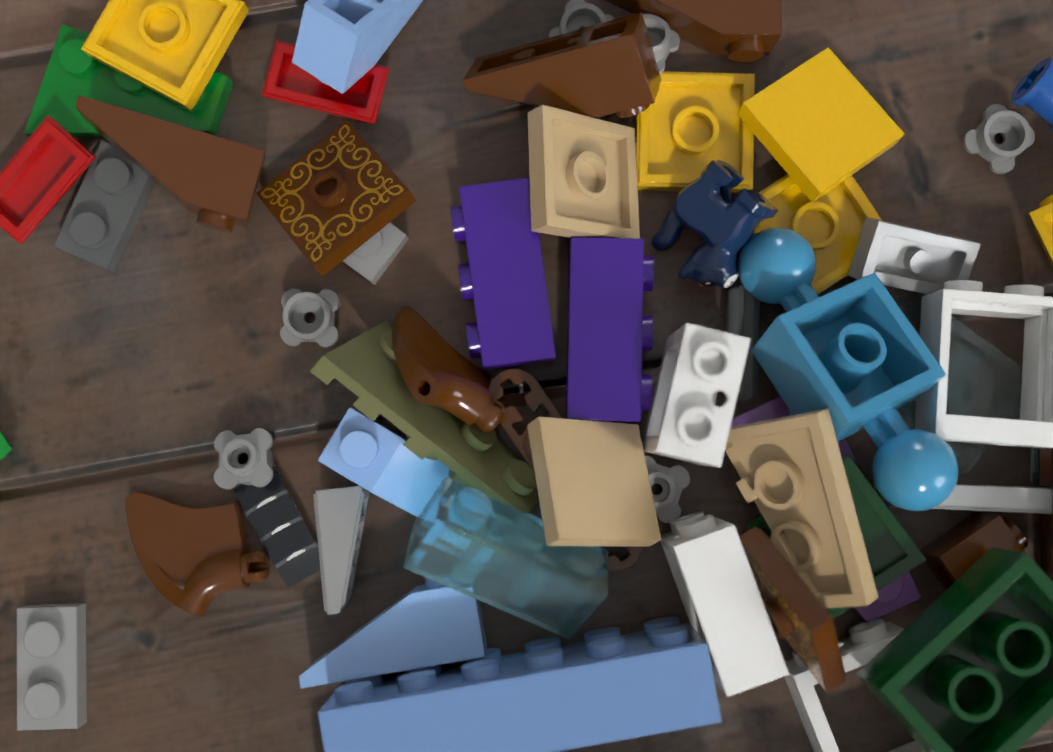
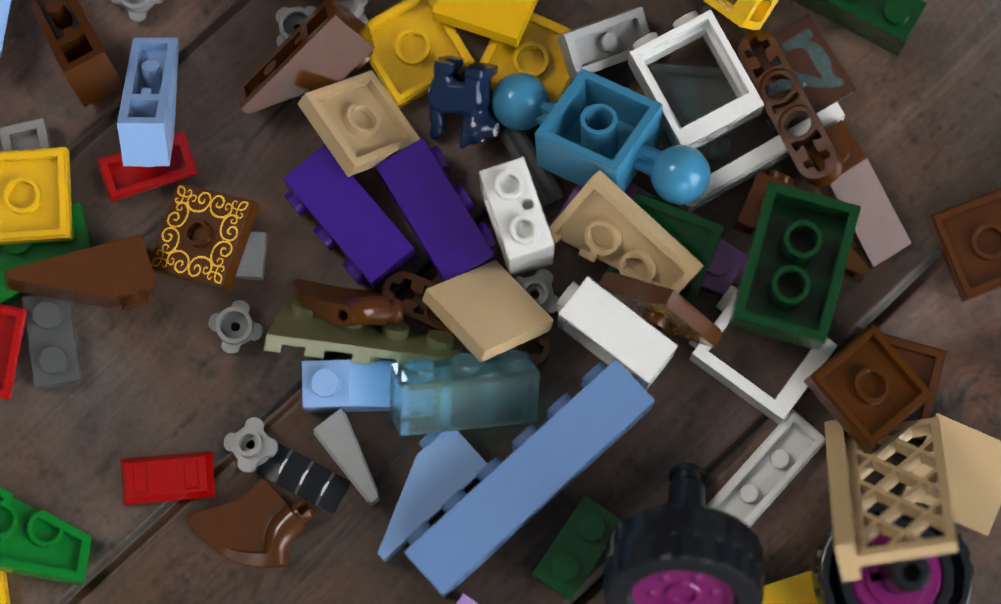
camera: 30 degrees left, 5 degrees down
(136, 435) = (167, 478): none -> red tile

